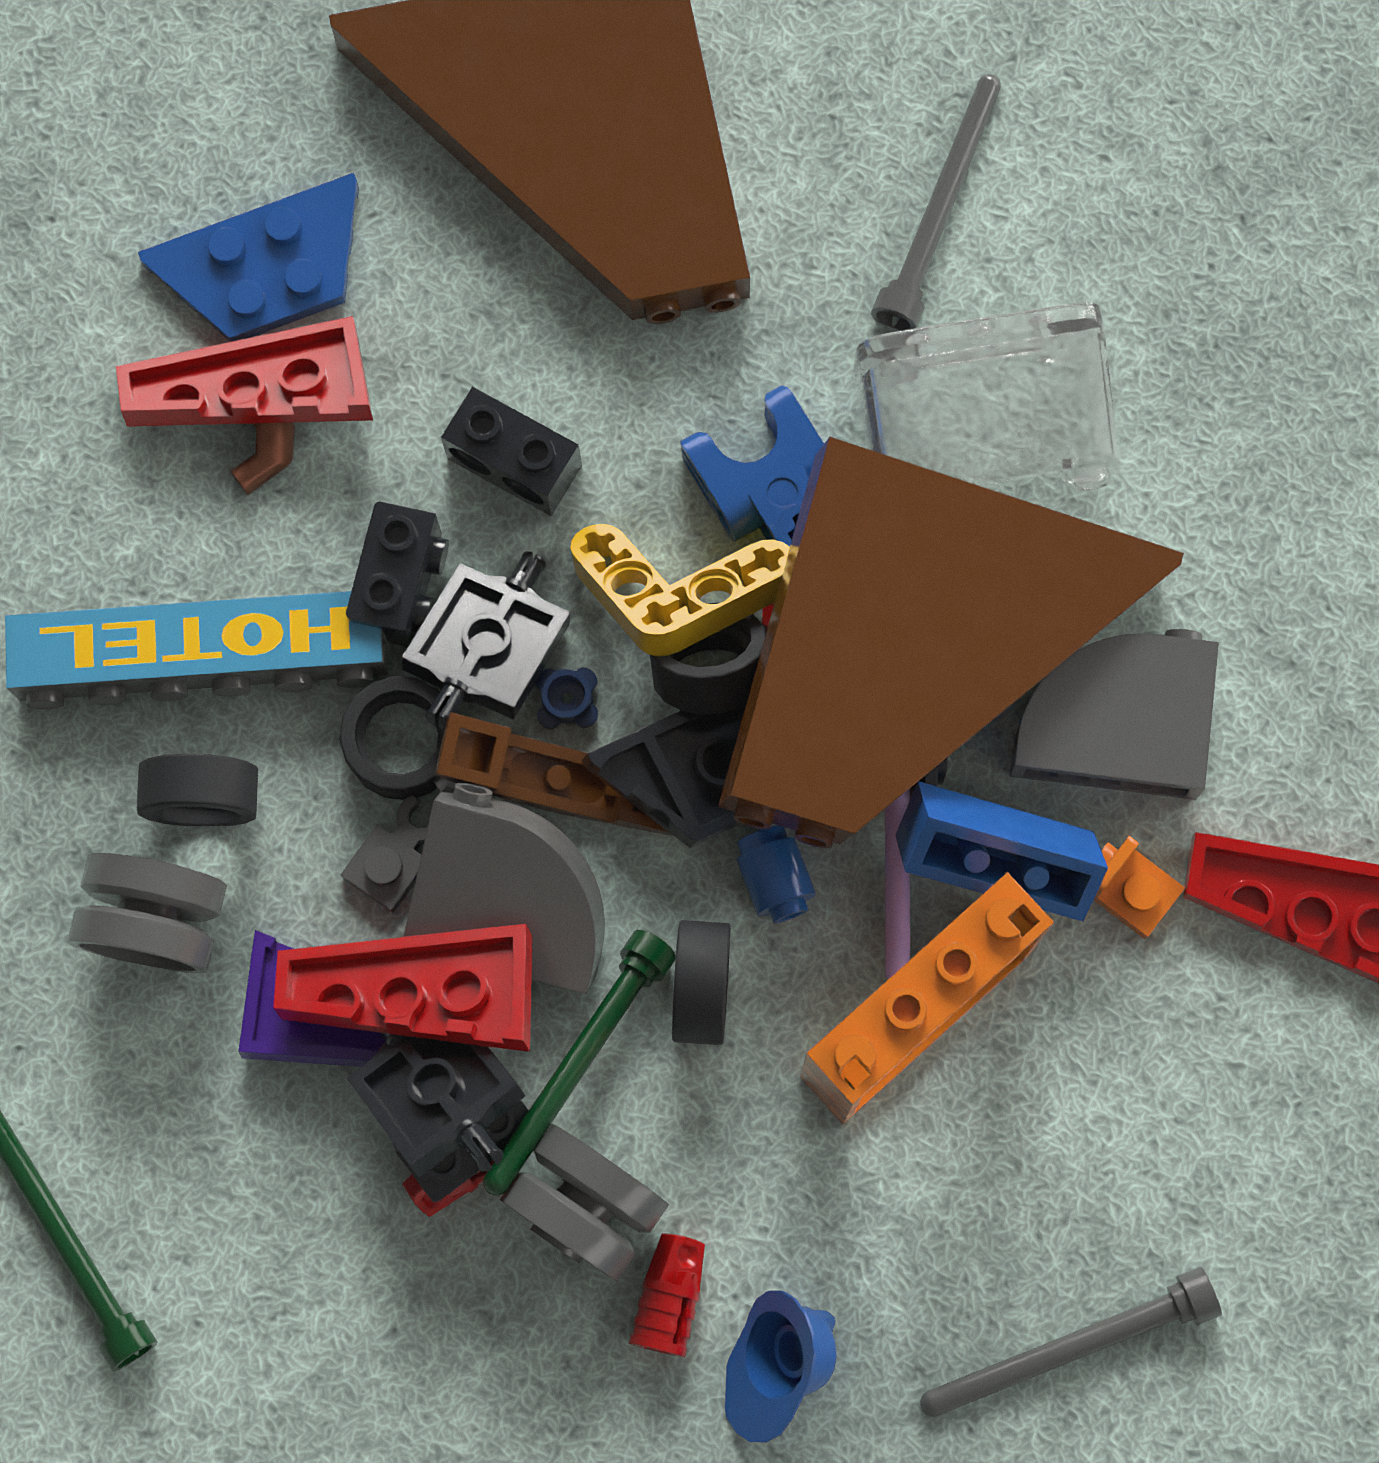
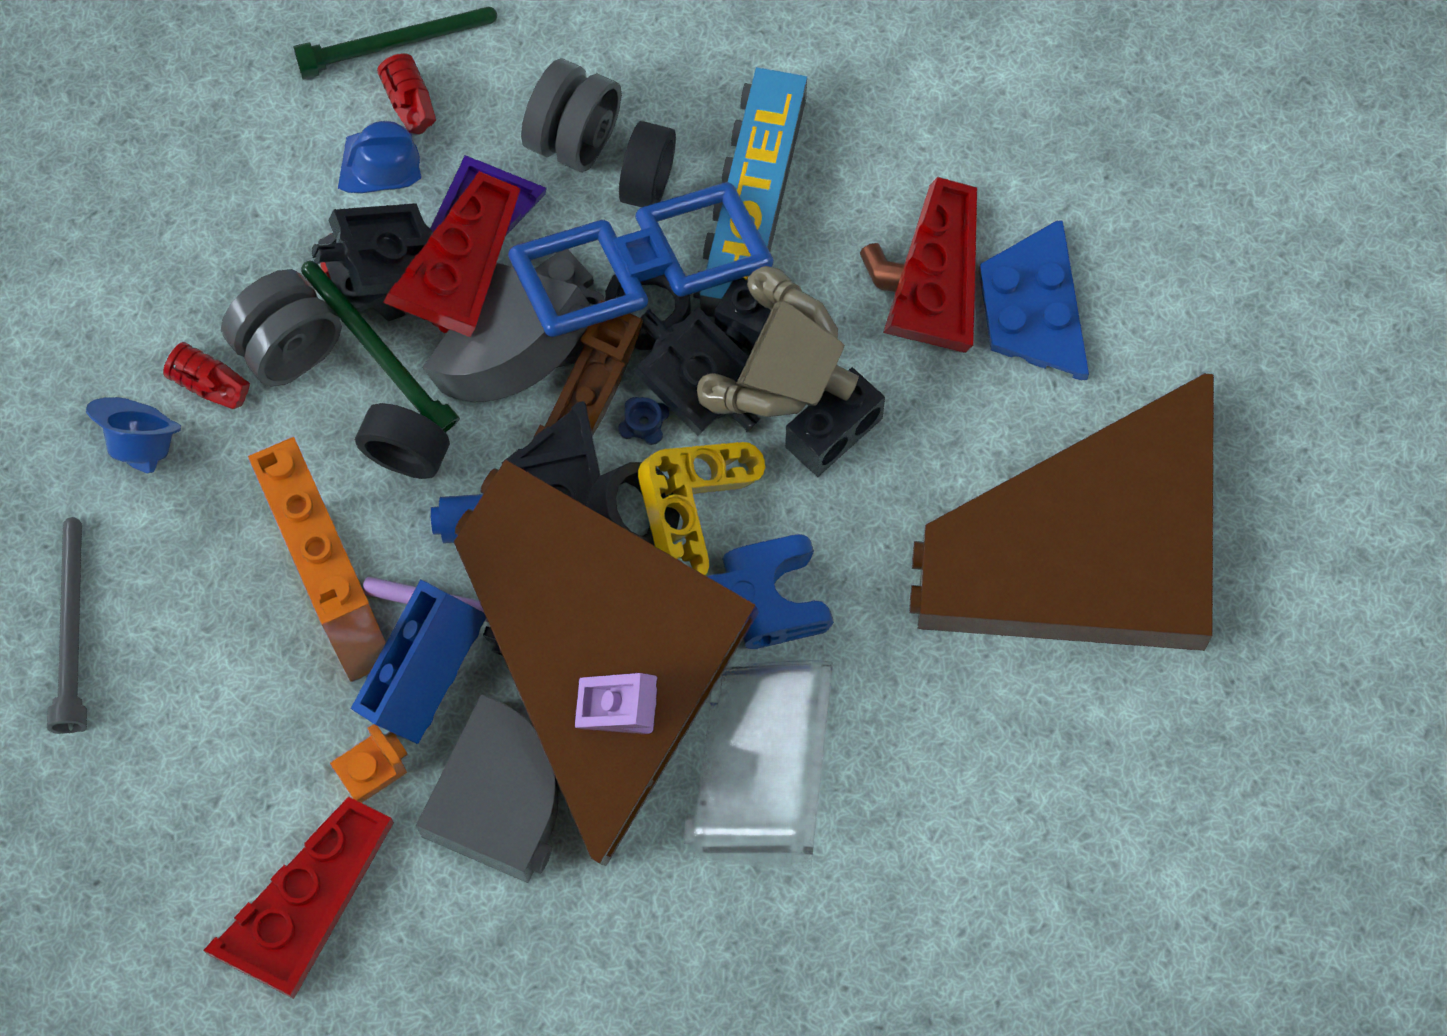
camera: 105 degrees right, 10 degrees down
(150, 1174) = (406, 85): none -> red hinge
(263, 1185) = (379, 159): none -> blue piece
(364, 739) = (639, 258): none -> blue bar
(471, 492) = (790, 359): none -> dark tan torso
(903, 295) = (879, 733): dark grey piece -> none
(1008, 559) = (617, 703): none -> lavender slope

